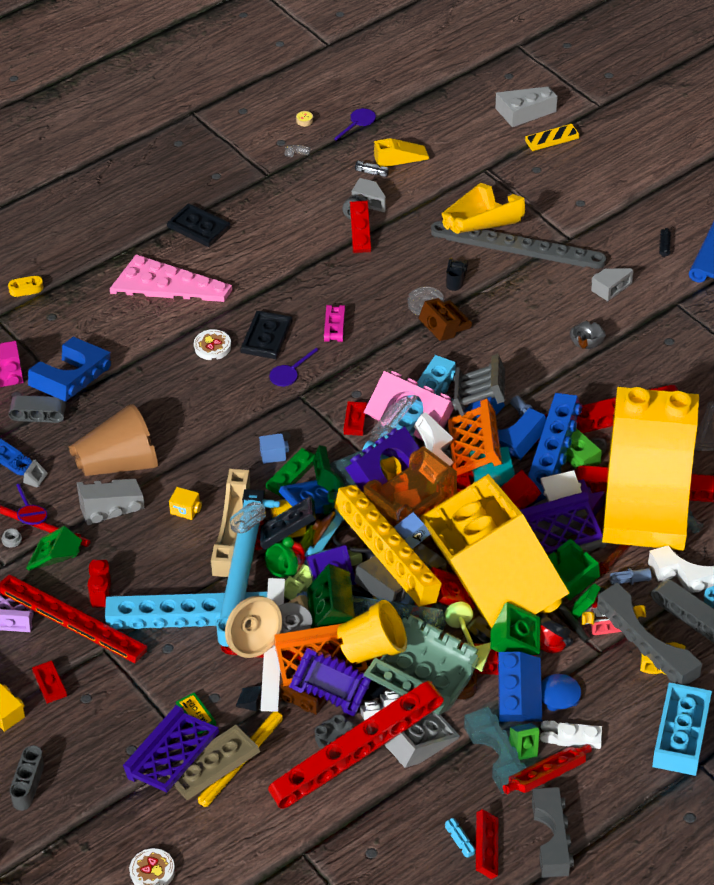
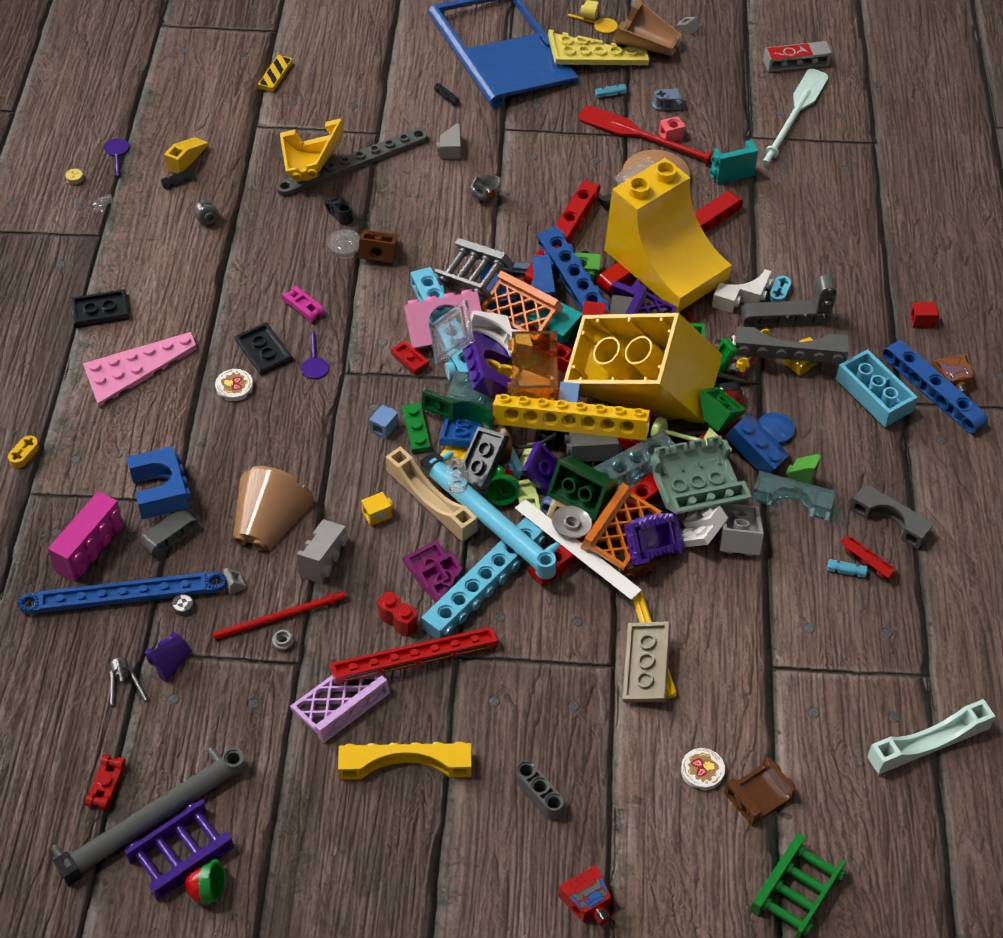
camera: 50 degrees left, 5 degrees up
(30, 513) = (272, 610): piece -> none
(49, 682) = (458, 712): red plate -> none
(55, 548) = (328, 619): green slope -> none
(158, 743) = (592, 684): dark purple fence -> none
(167, 574) = (433, 569): none -> magenta slope
(194, 707) = (583, 642): tile -> none
(250, 698) = (604, 599): black slope -> none
(258, 633) = (566, 543): tan dish -> none
(332, 730) = (690, 573): dark grey dish -> none
(355, 744) = (727, 565): red beam -> none
(360, 226) = (231, 223): red plate -> none
(372, 194) = (205, 192): light grey slope -> none
(373, 634) = (655, 480): yellow piece -> none
(525, 104) = (229, 61): light grey wedge -> none
(547, 769) = (843, 479): red plate -> none
(560, 485) = (615, 296): white piece -> none
(571, 734) = (821, 444): white hinge -> none
(630, 576) = (718, 321): sand blue axle -> none

